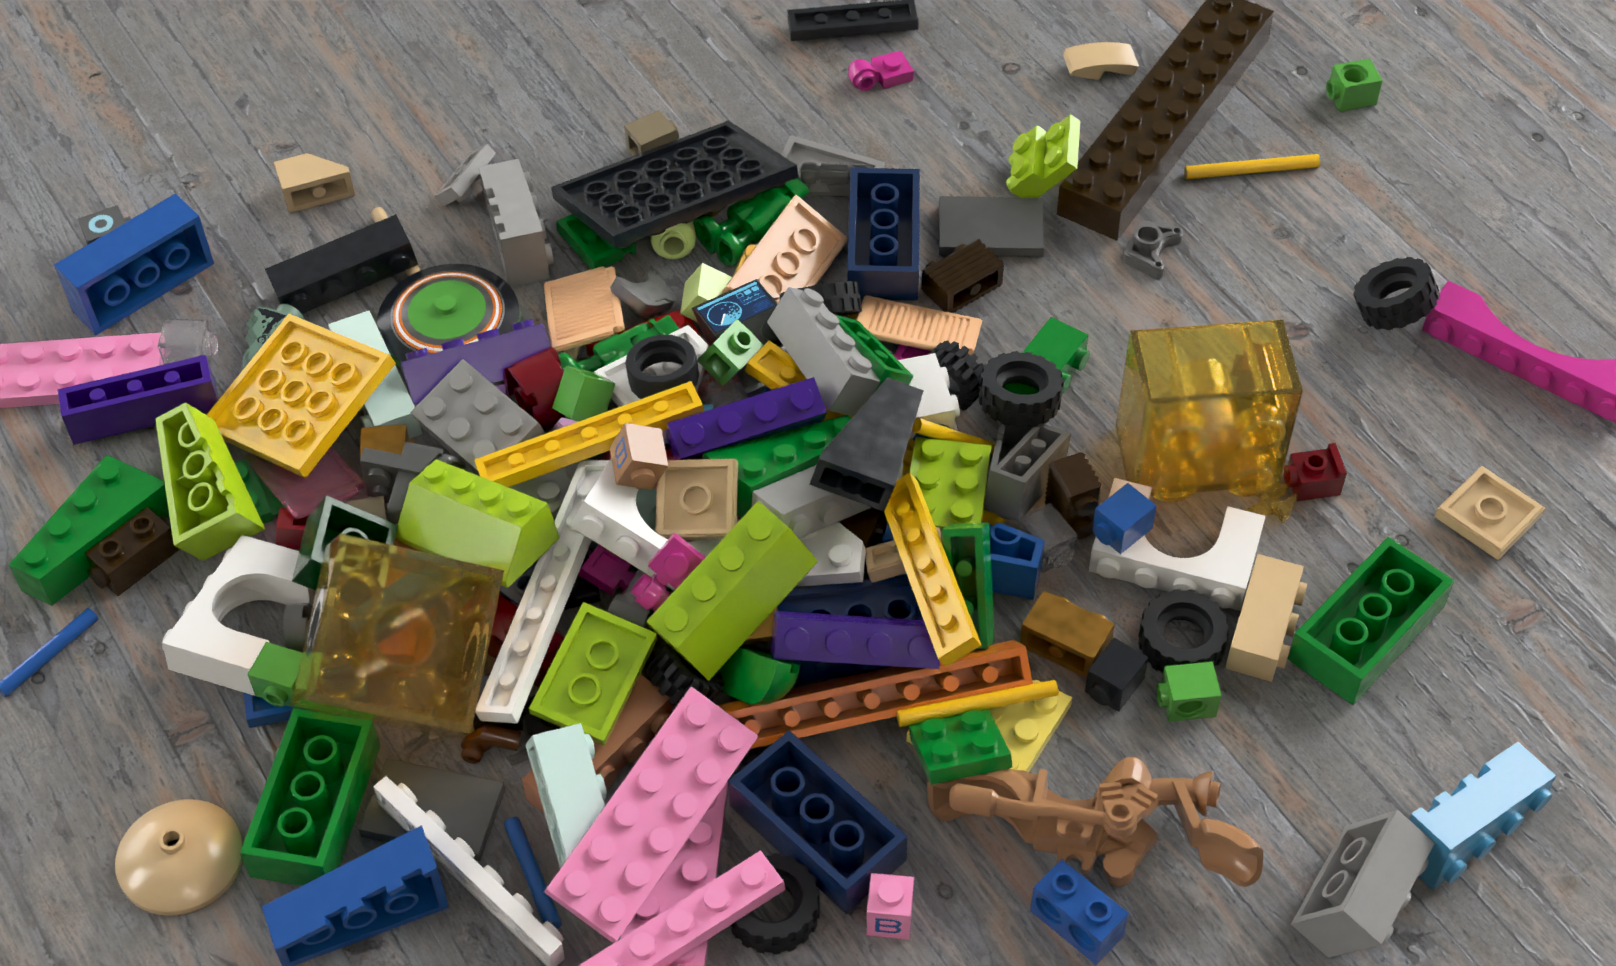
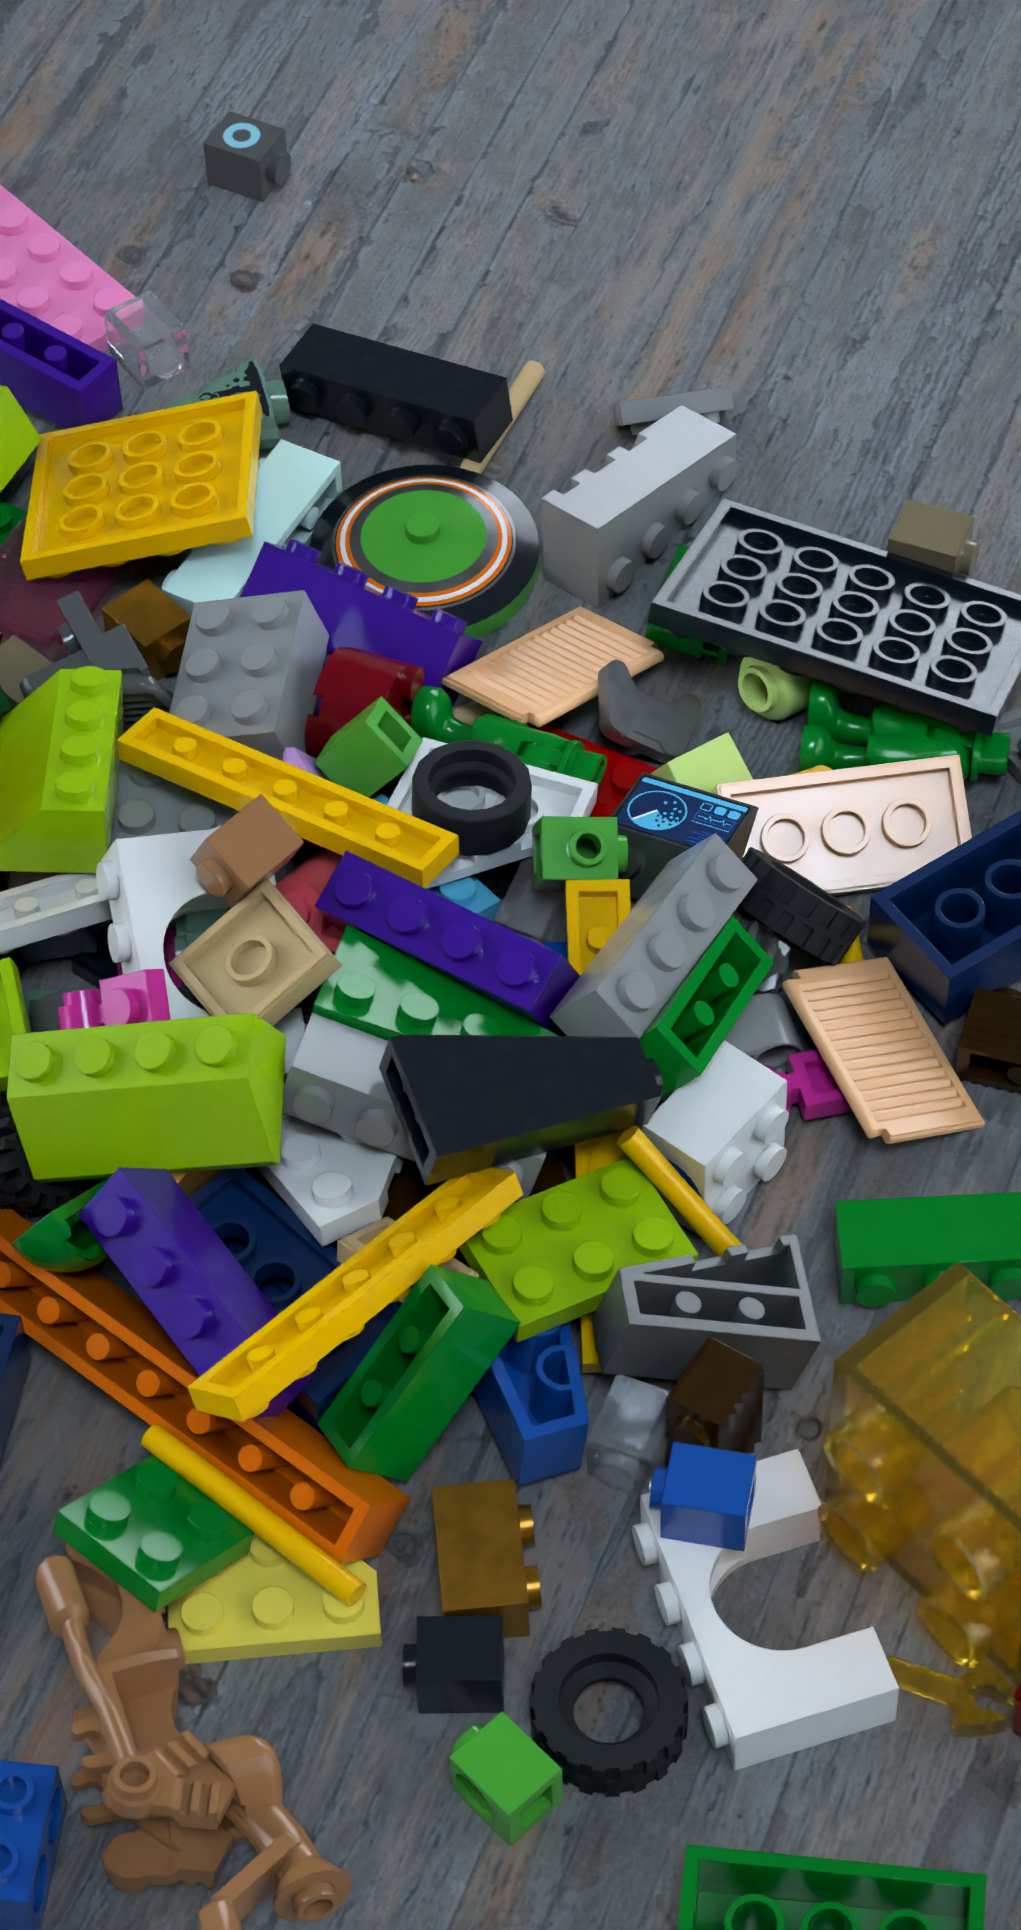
camera: 55 degrees right, 0 degrees up
(134, 264) = (208, 207): blue brick -> none
(312, 181) = (507, 271): tan slope -> none
(962, 371) = (814, 1142): black tyre -> none
(1017, 408) = (823, 1270): black tyre -> none
(1266, 618) = (729, 1797): tan brick -> none

